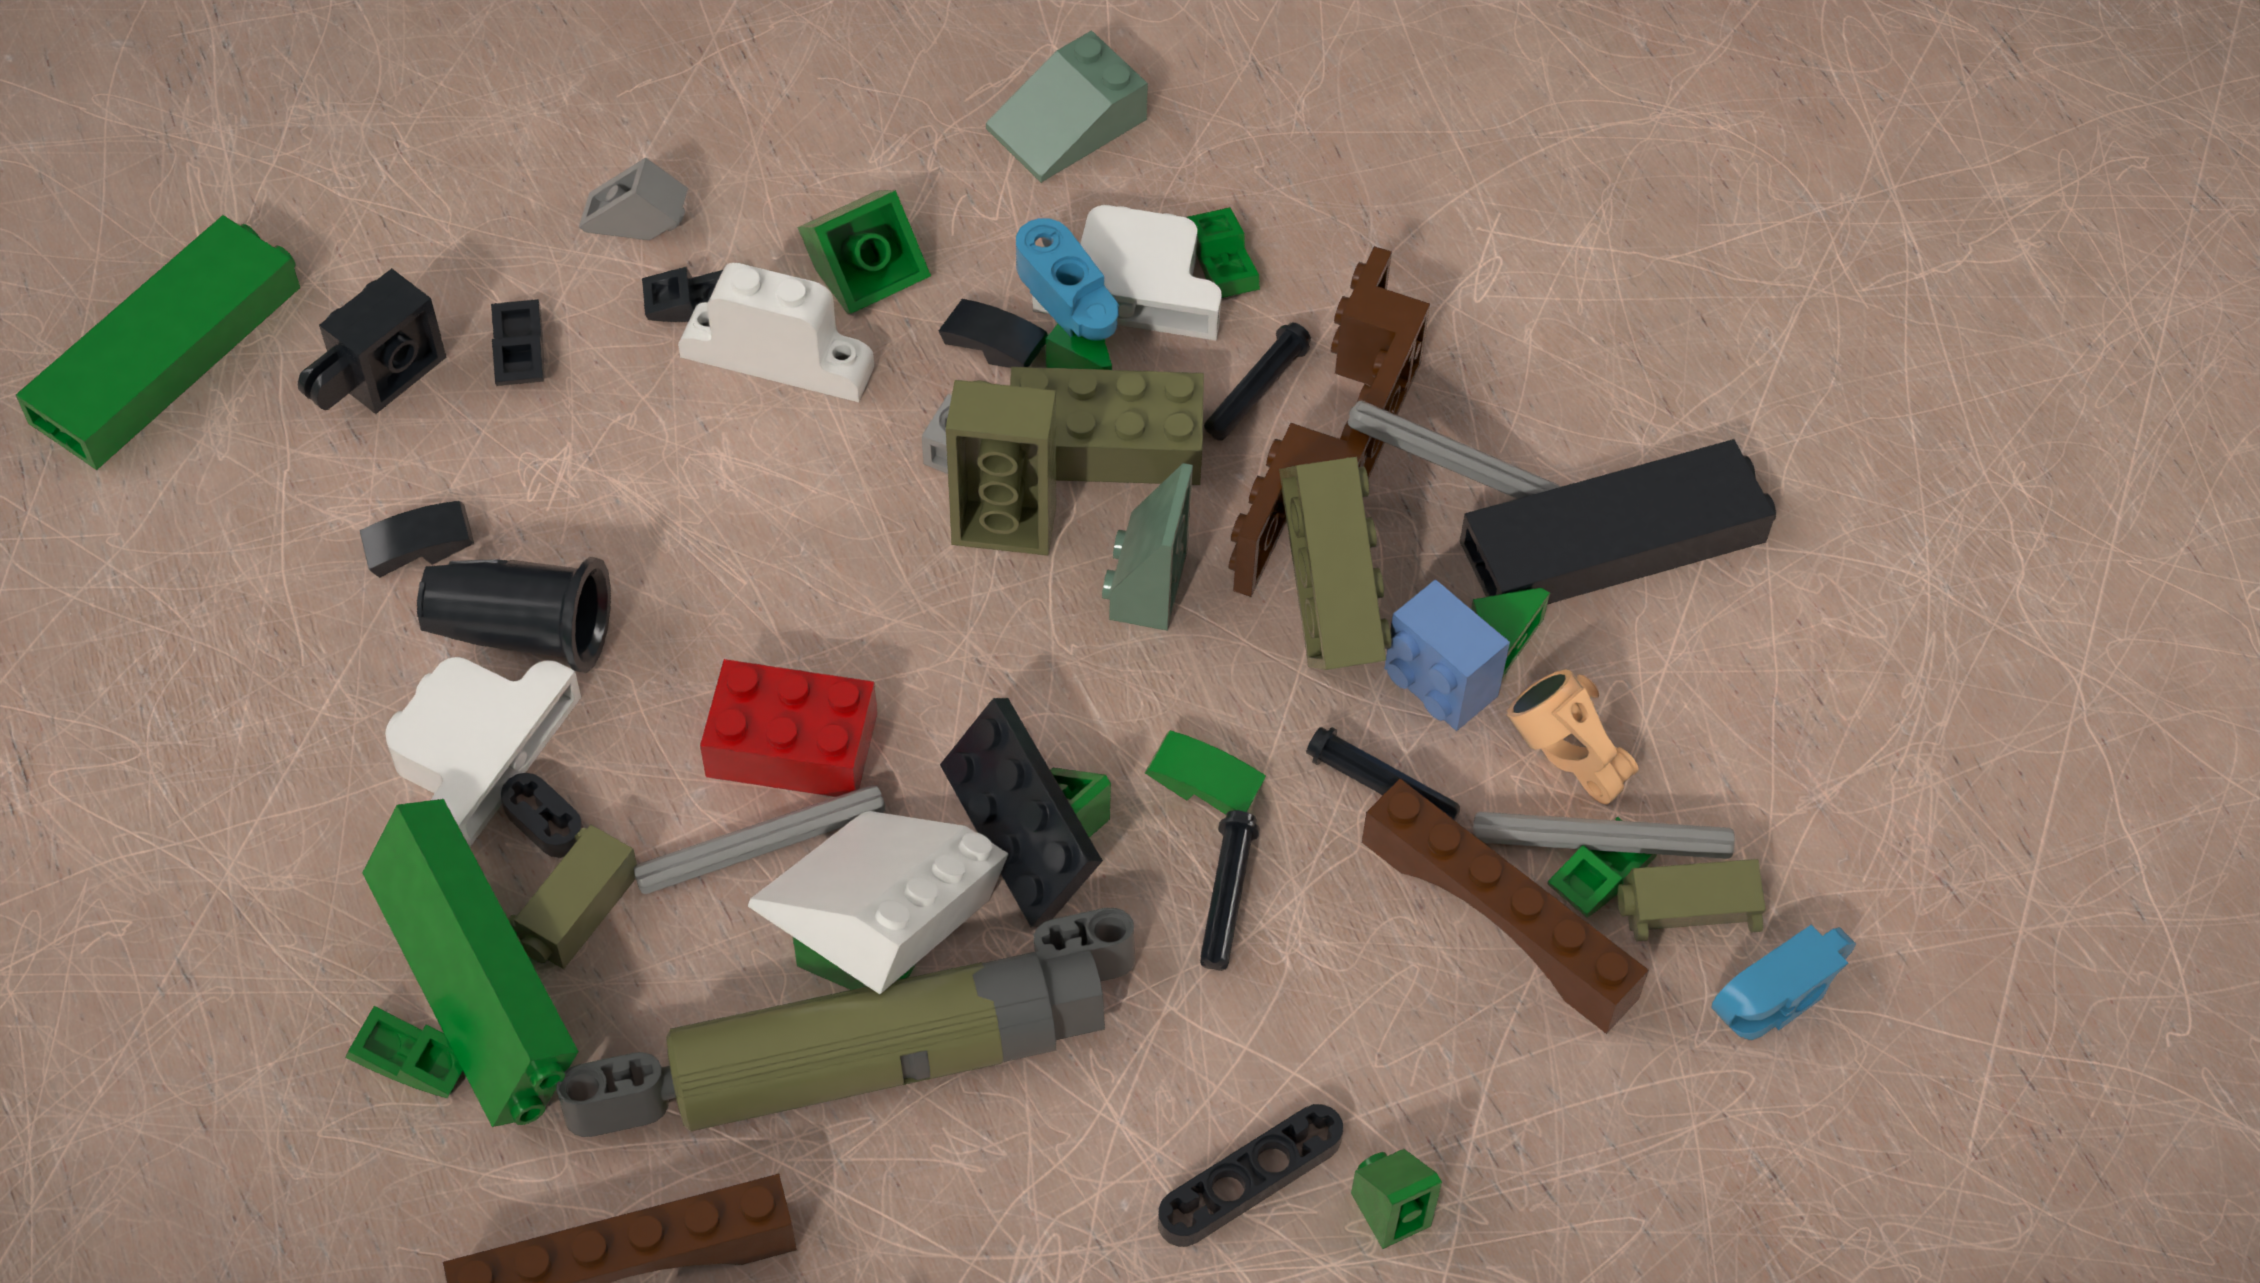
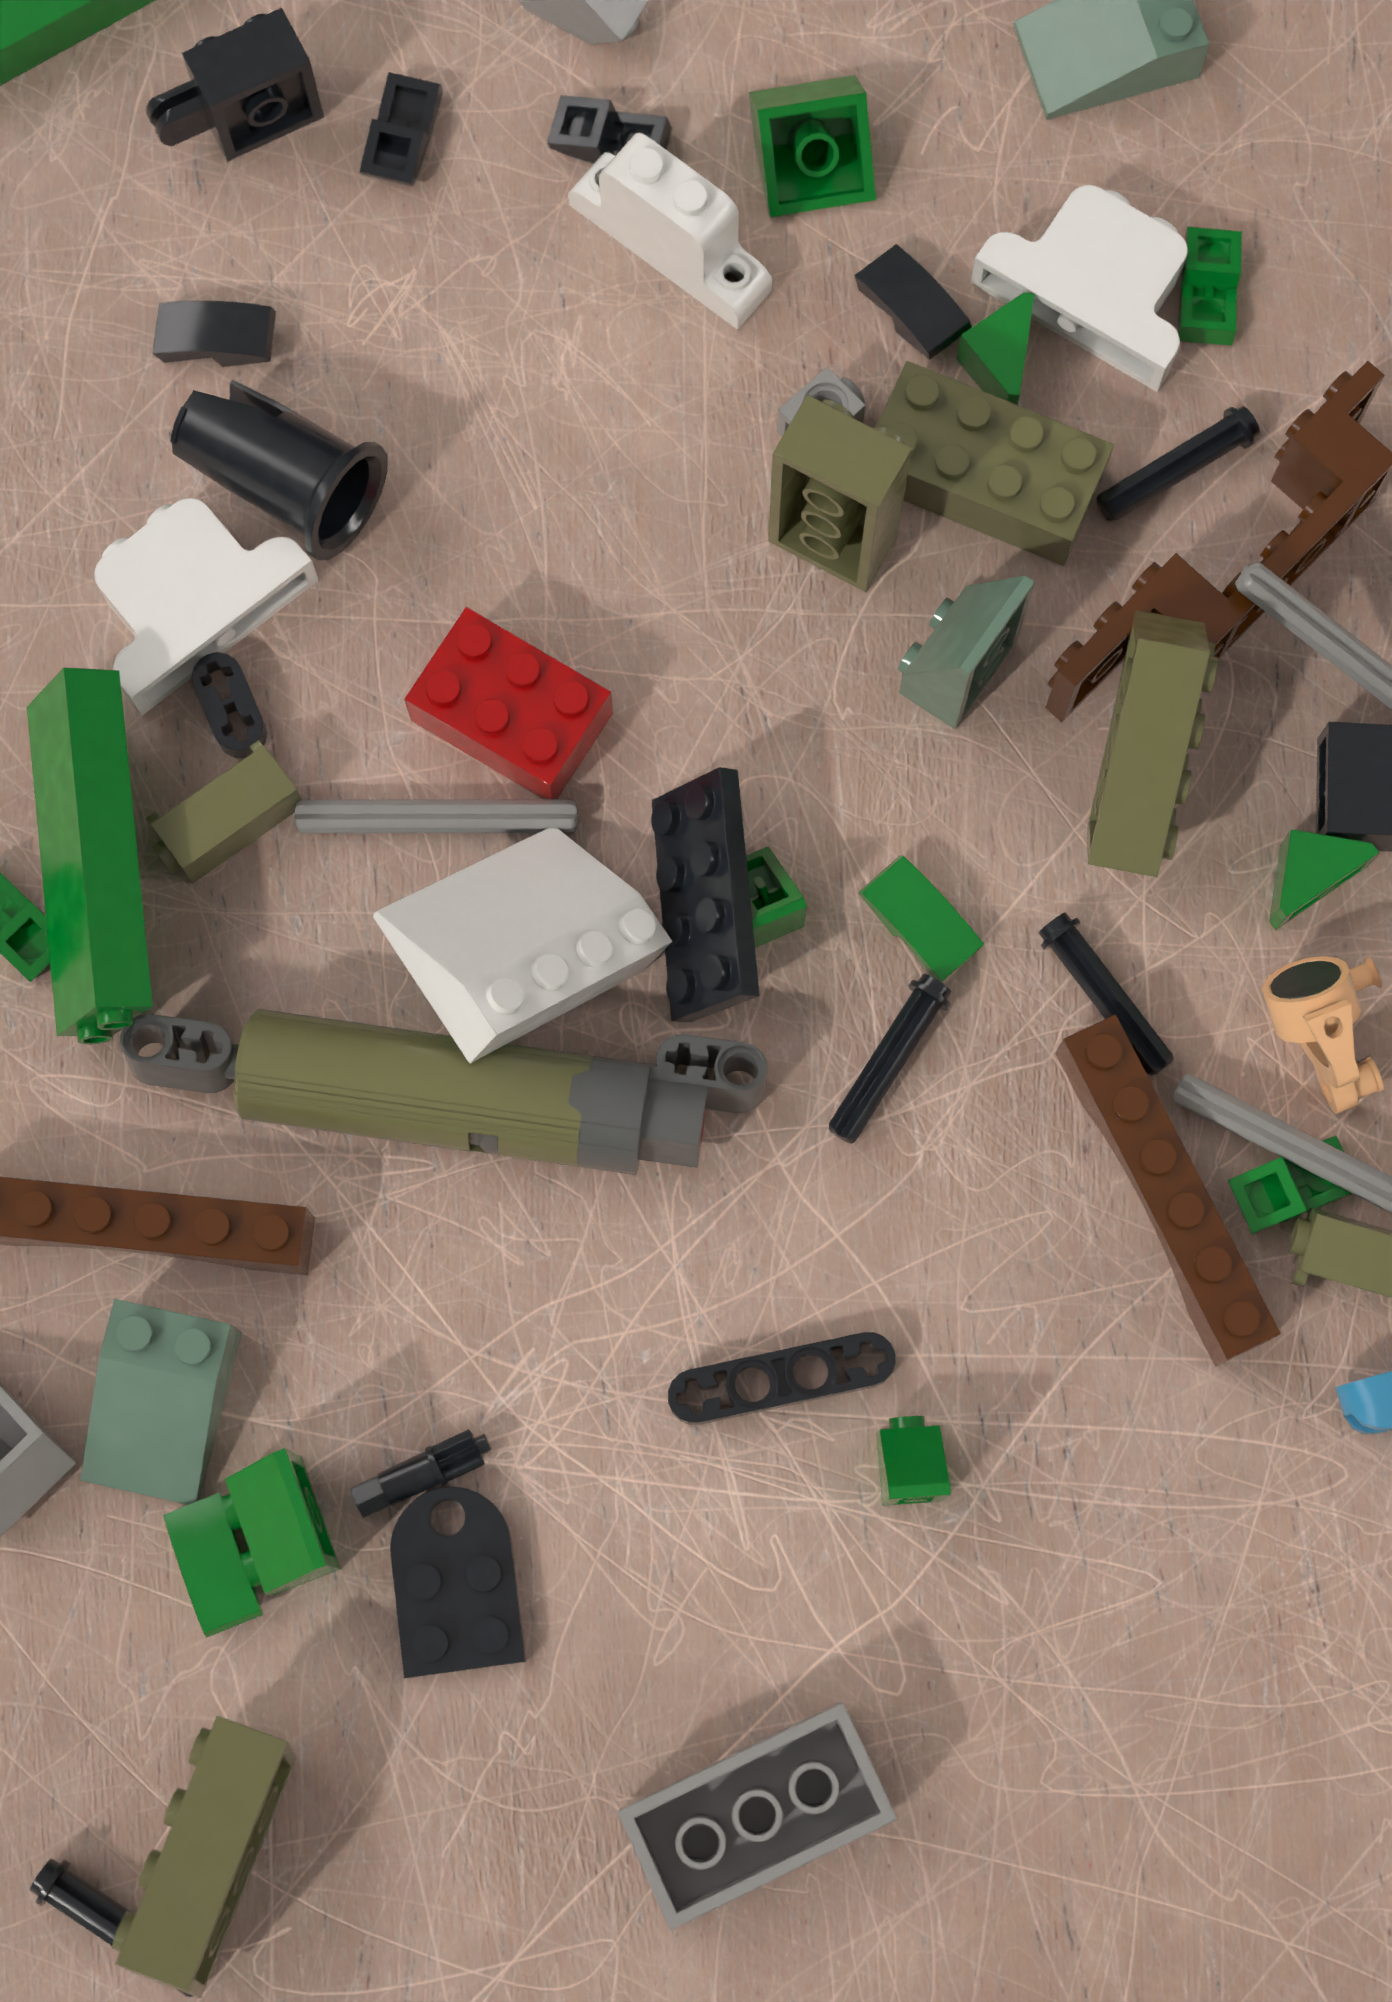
camera: 25 degrees right, 20 degrees up
(1065, 280) = (1017, 318): dark azure piece -> none
(1446, 655) = (1230, 885): medium blue brick -> none

